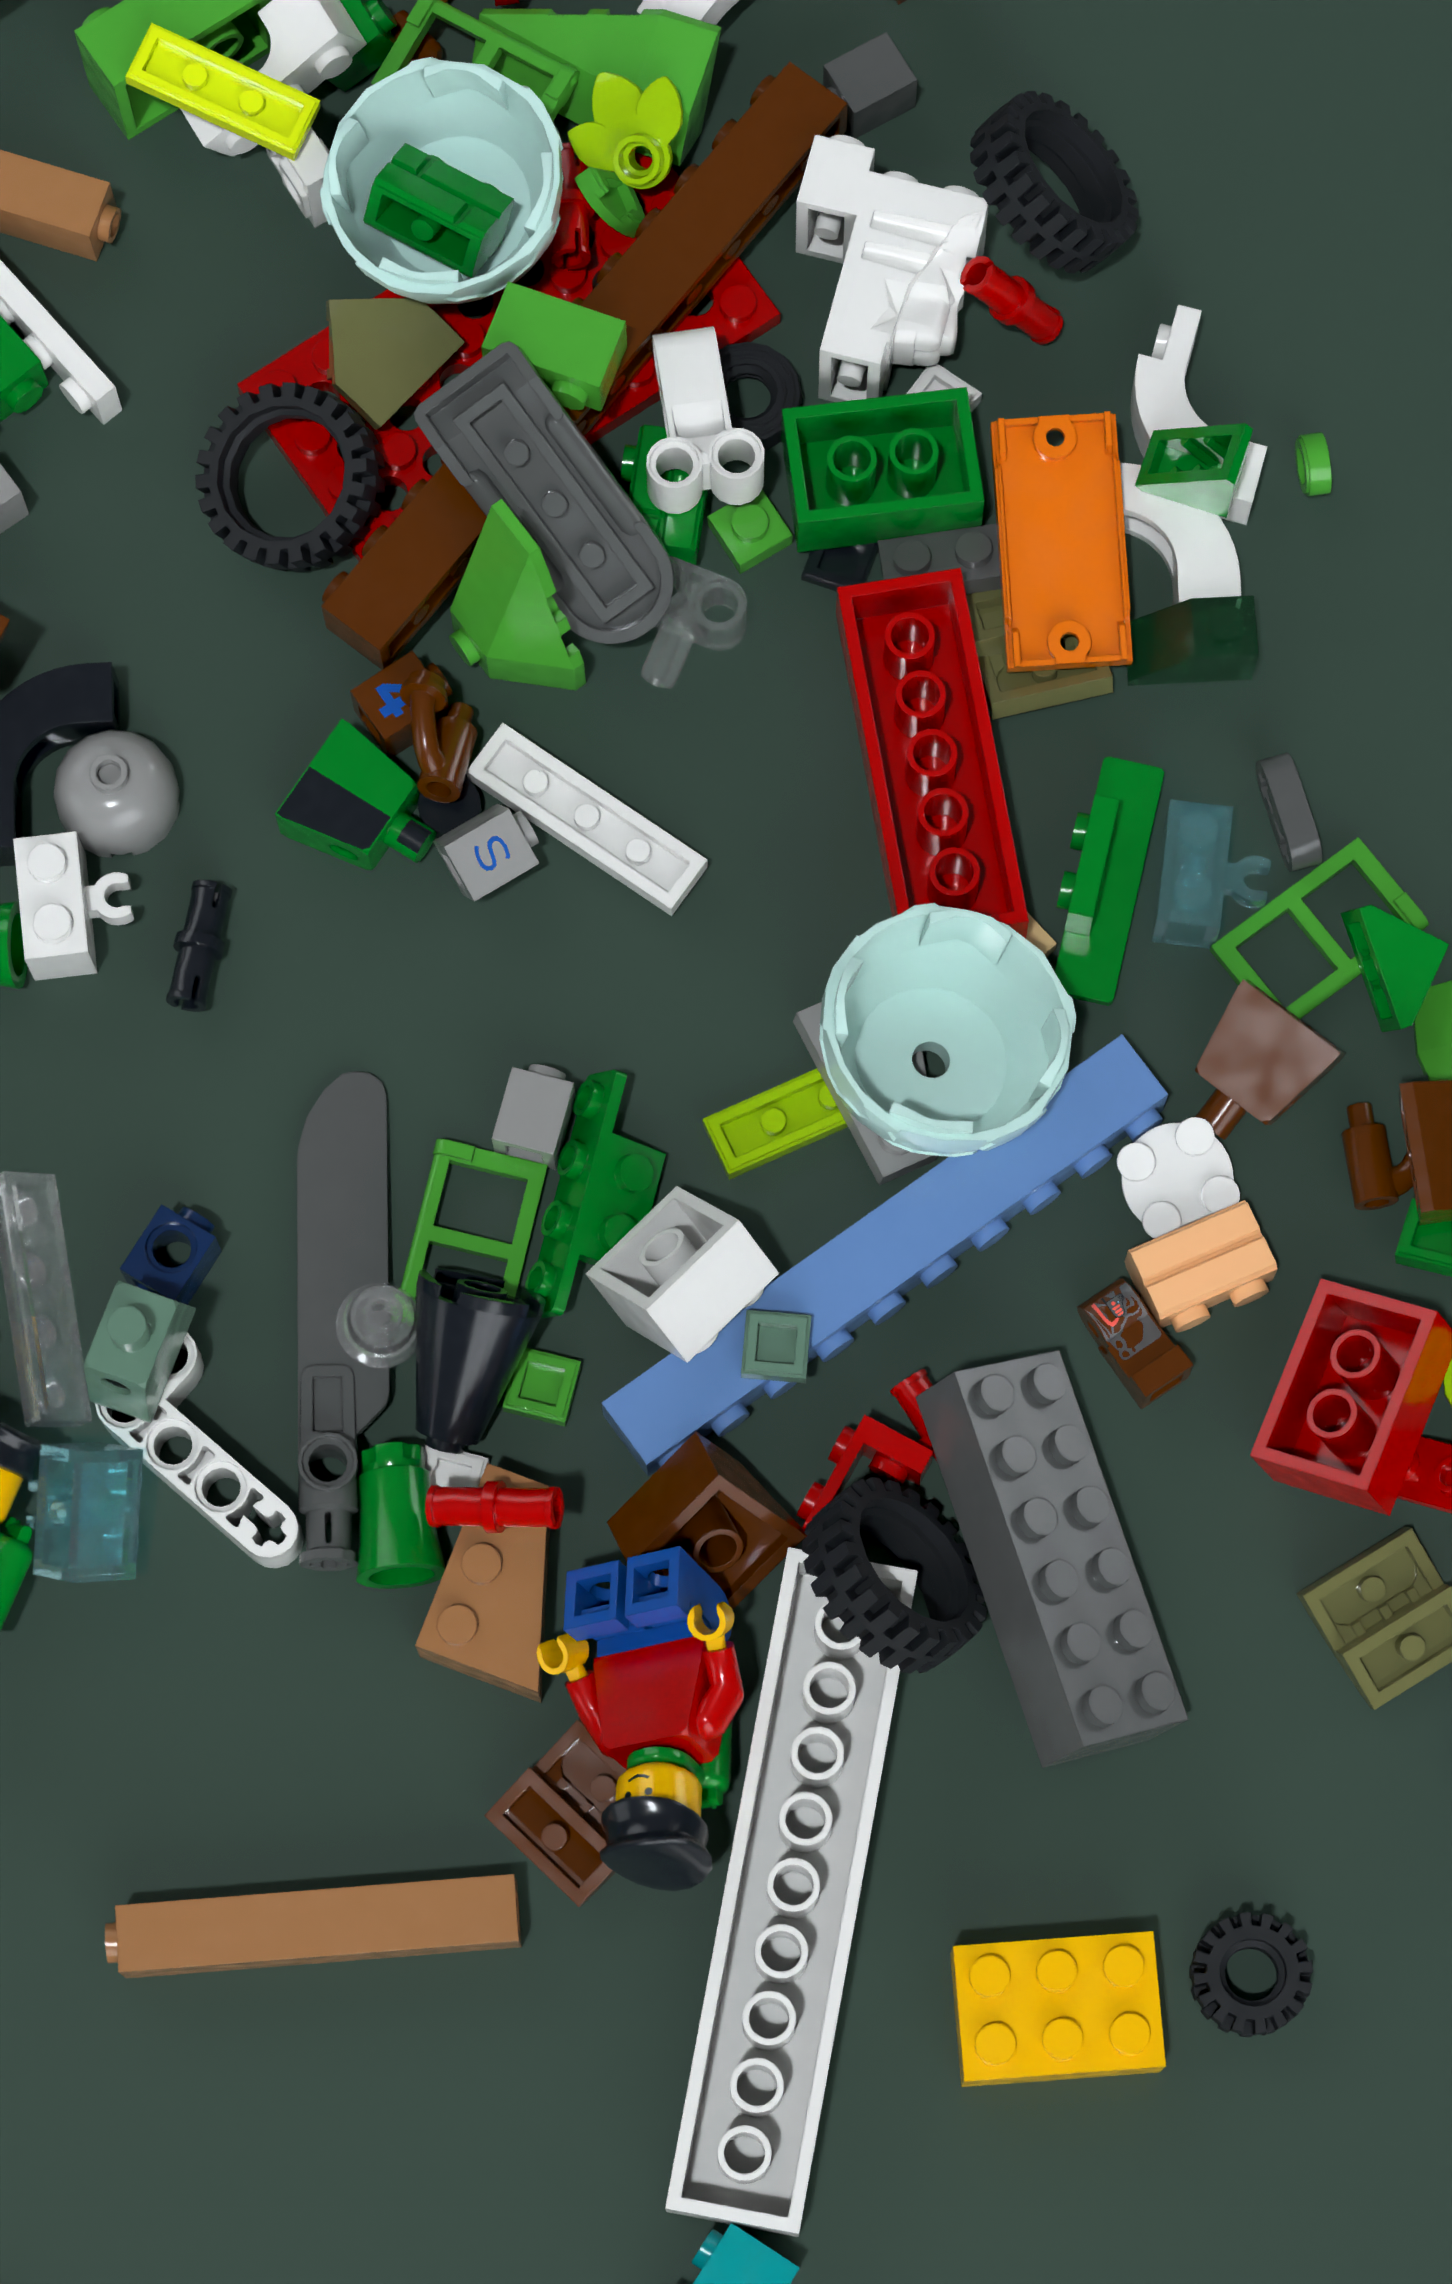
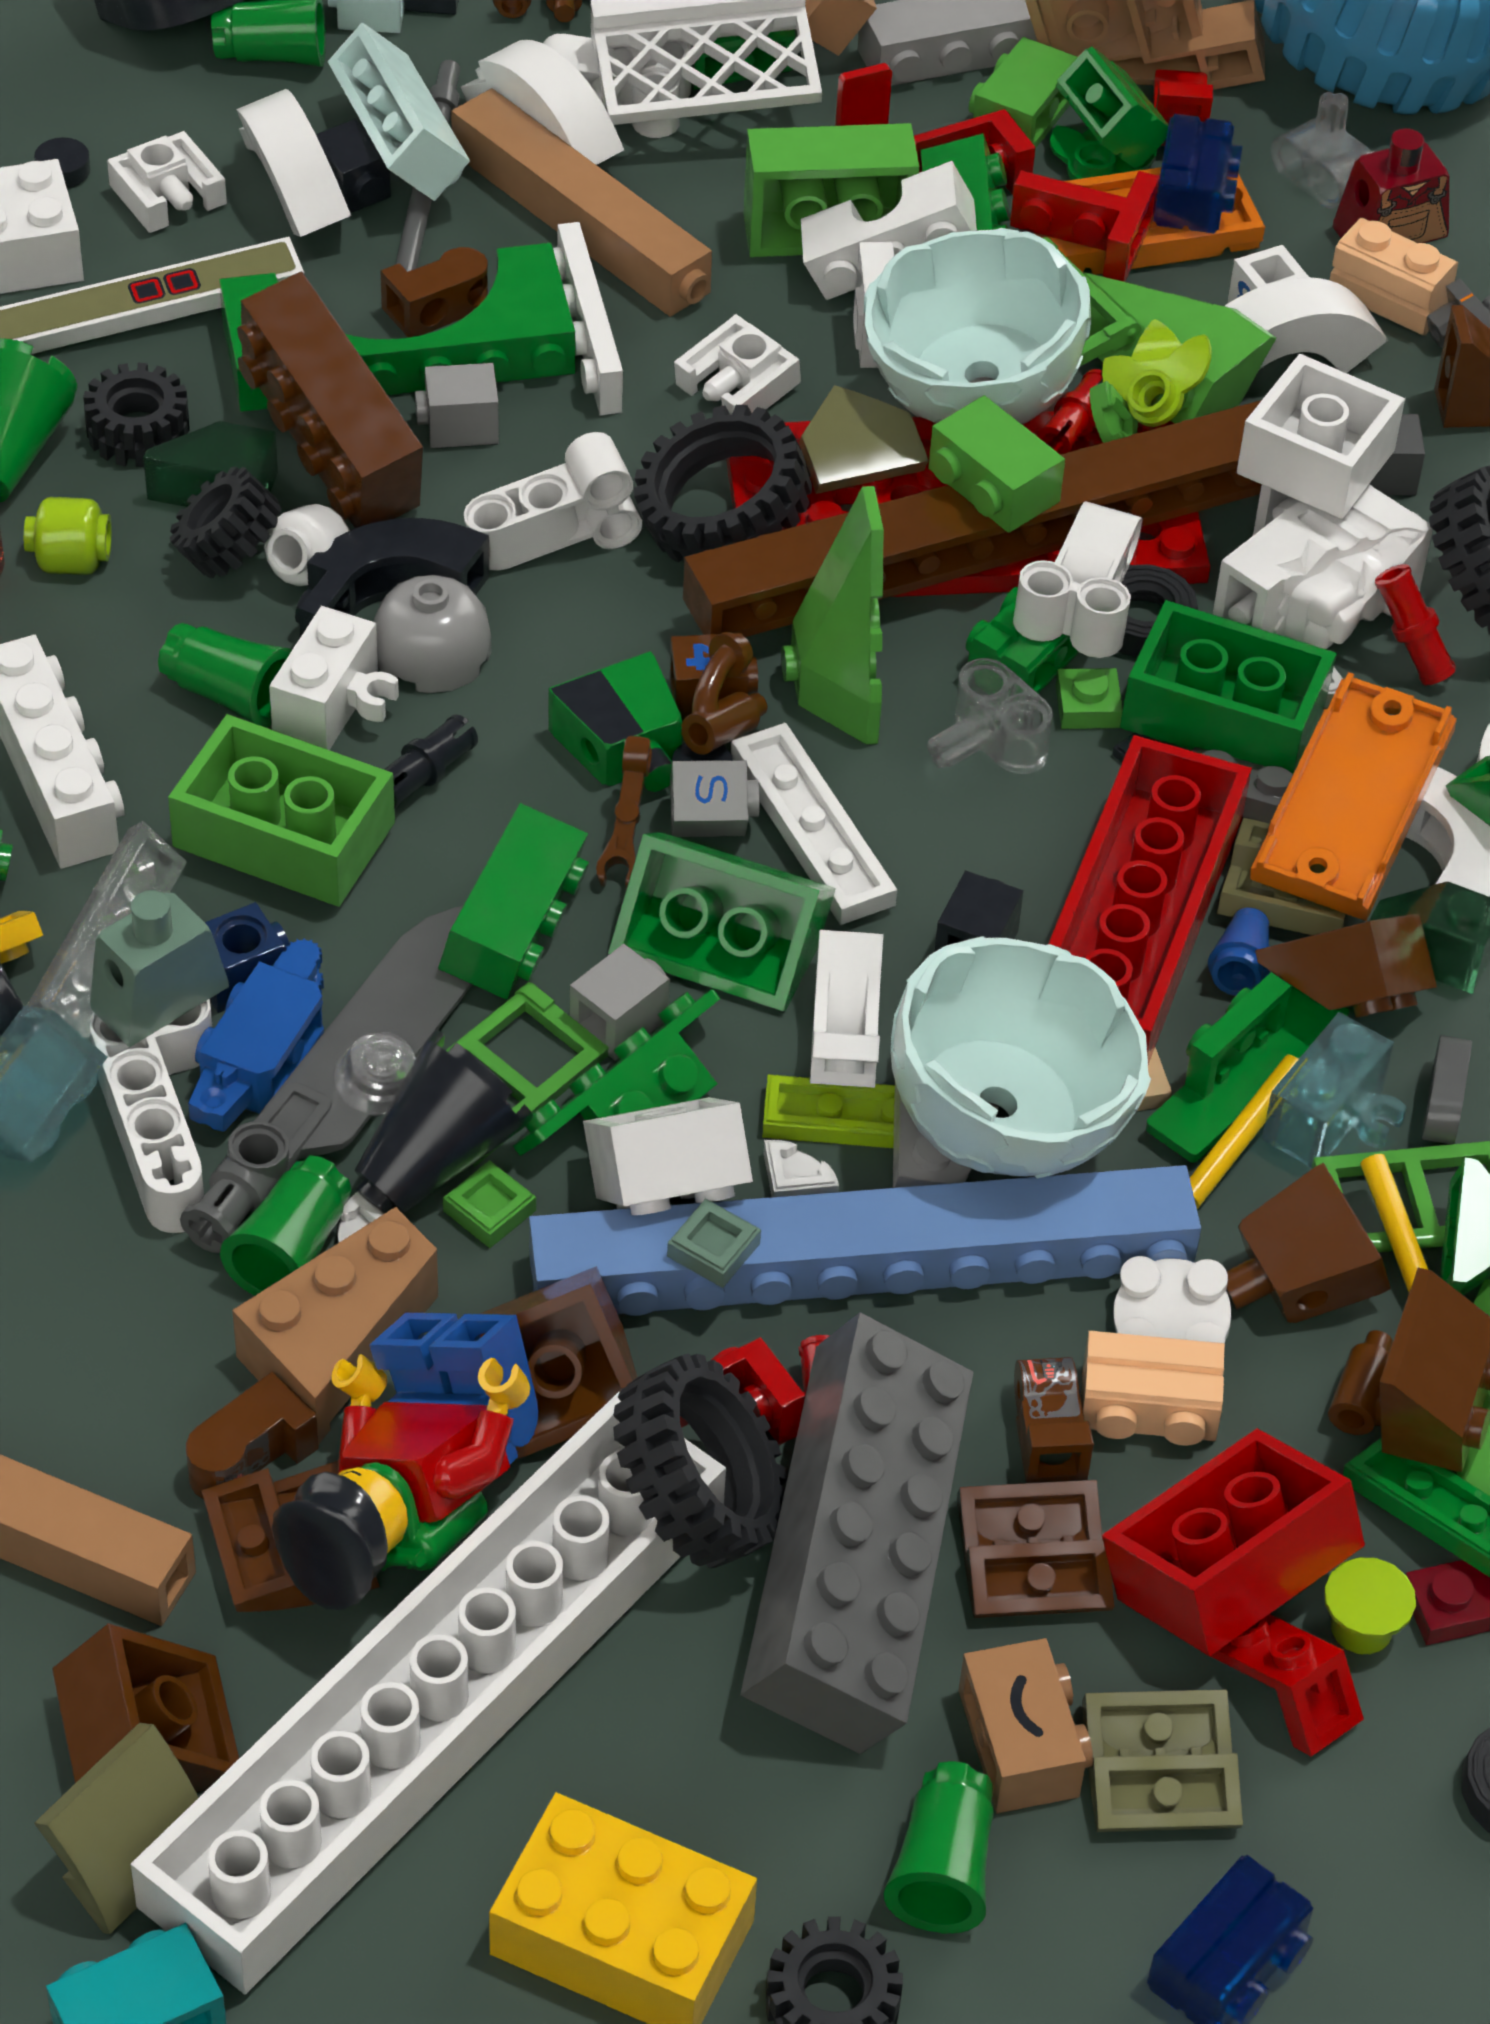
camera: 25 degrees right, 25 degrees down
(115, 1082) = (282, 810): none -> bright green brick
(172, 552) = (559, 506): none -> white piece
(222, 91) = (836, 207): neon yellow tile -> none
(241, 308) = (745, 361): none -> white brick
(249, 1335) = (260, 1037): none -> blue hinge
(383, 1064) = (515, 902): none -> green brick
(421, 906) = (620, 848): none -> reddish brown piece
(438, 210) = (957, 338): green brick -> none
(485, 1741) = (250, 1435): none -> reddish brown leg
(494, 1506) = (375, 1224): red pin -> none
(518, 444) = (937, 585): dark grey piece -> none
(570, 976) = (721, 919): none -> green slope
(574, 2051) = (136, 1679): none -> reddish brown slope
(628, 2167) = (114, 1818): none -> olive slope
(740, 1025) = (846, 1009): none -> white arch
(783, 1207) = (796, 1172): none -> white tile
(798, 856) = (979, 909): none -> black brick
(847, 167) = (1320, 436): none -> white brick
(1040, 757) = (1234, 958): none -> blue cone
(1138, 951) = (1237, 1136): none -> yellow bar
(1151, 734) = (1362, 966): none -> reddish brown slope
(1186, 1475) = (1034, 1549): none -> reddish brown slope
(1270, 1652) = (1024, 1724): none -> medium nougat brick
(1270, 1802) = (944, 1853): none -> green plant
(1335, 1000) = (1393, 1216): none -> yellow bar

